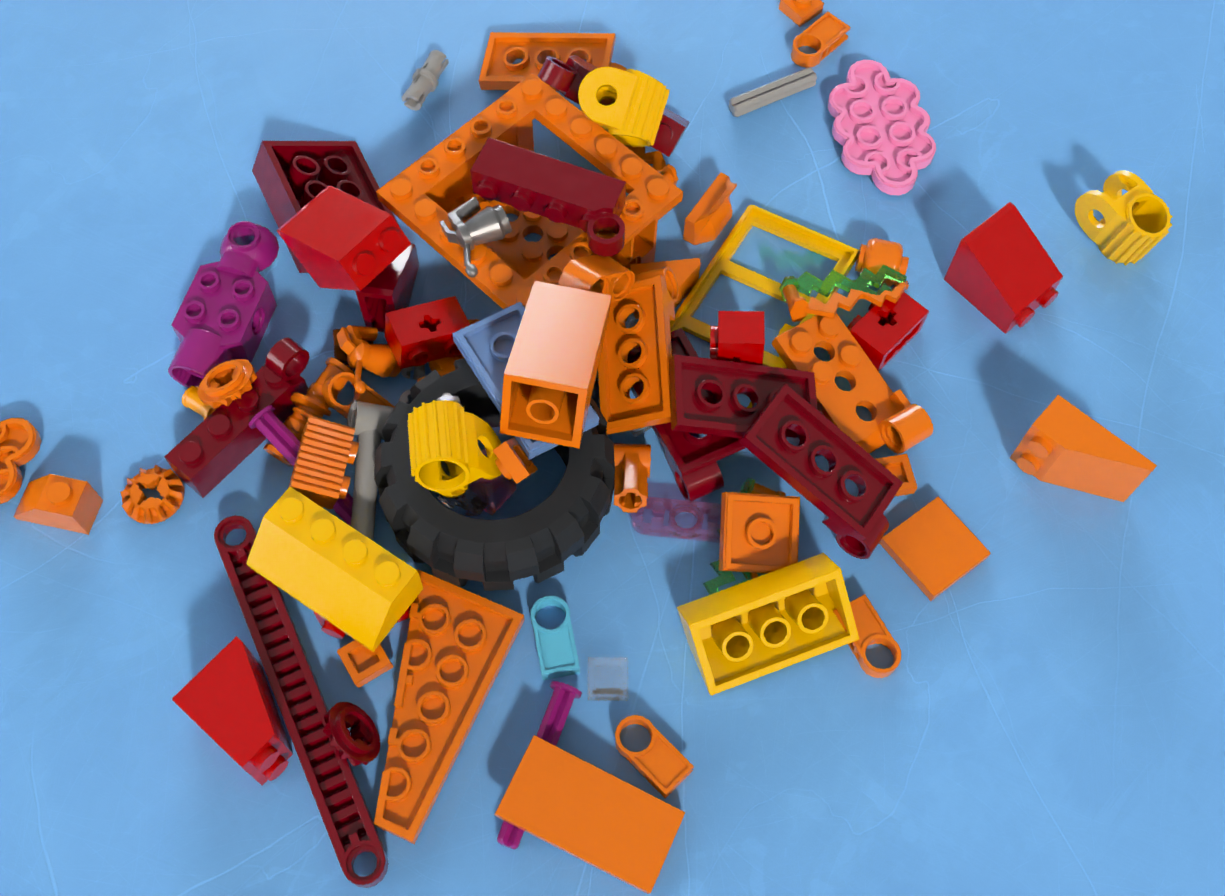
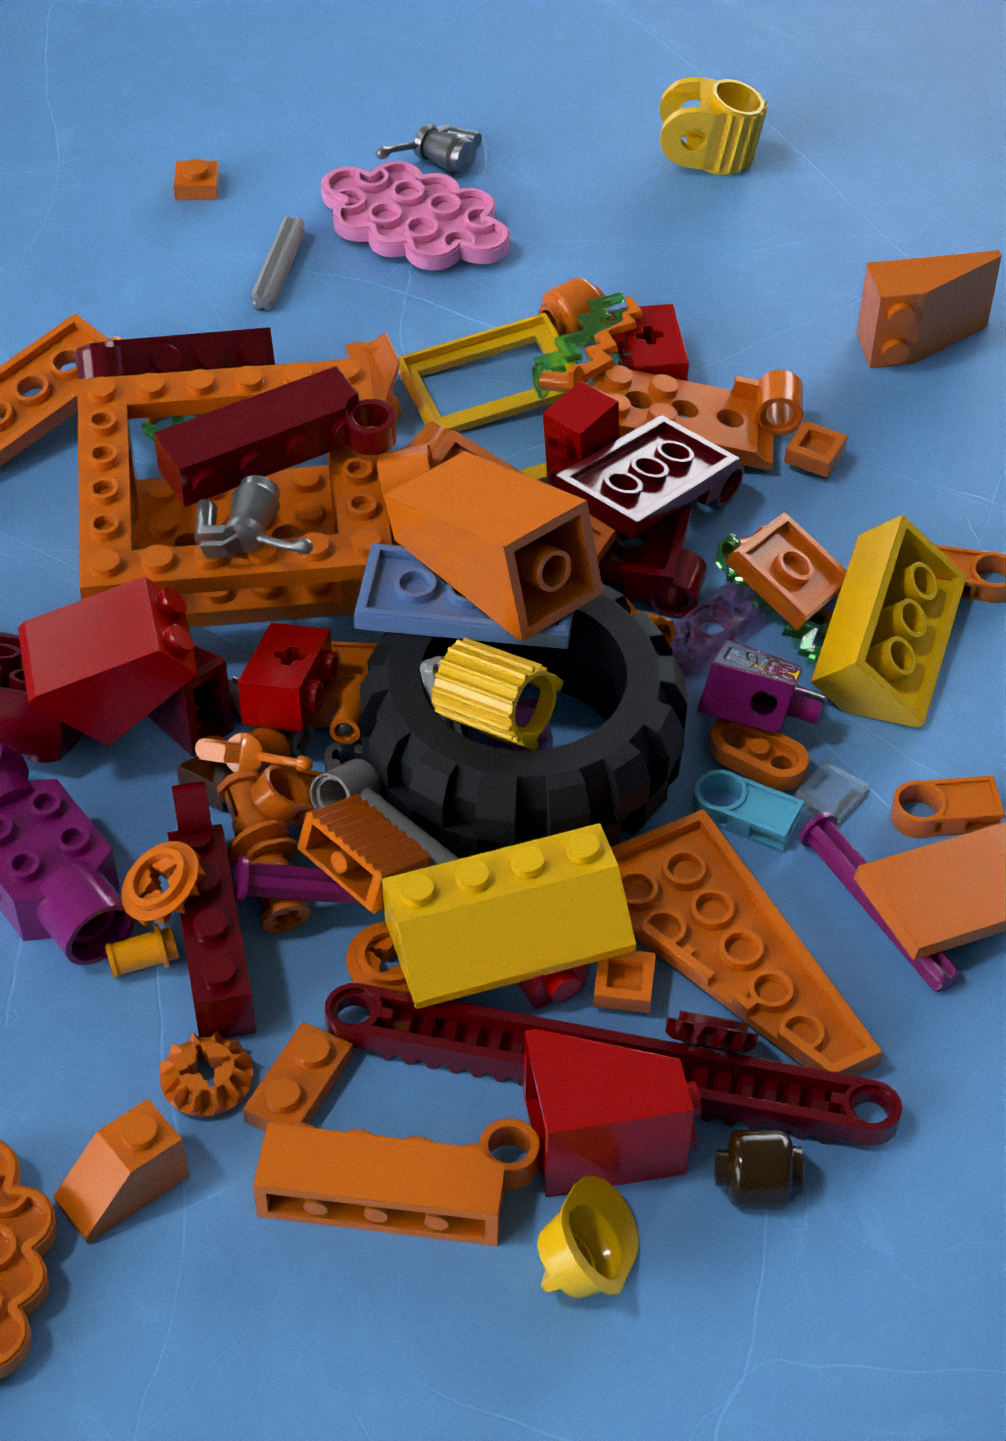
camera: 50 degrees left, 15 degrees down
(131, 632) = (392, 1182): none -> orange hinge
(161, 769) = (589, 1241): none -> yellow piece
(177, 542) = (299, 1078): none -> orange plate
(279, 826) = (759, 1169): none -> dark brown head
(513, 461) = (563, 655): orange plate -> none
(601, 616) = (762, 755): none -> orange plate
(637, 104) = (207, 331): yellow piece -> none
(637, 579) = (740, 688): none -> magenta torso
(823, 36) = (256, 188): orange piece -> none
(854, 519) = (779, 467): dark red hinge -> none
(934, 548) = (917, 471): orange tile -> none
(955, 95) = (445, 145): none -> flat silver piece
(1004, 270) = (680, 234): red slope -> none

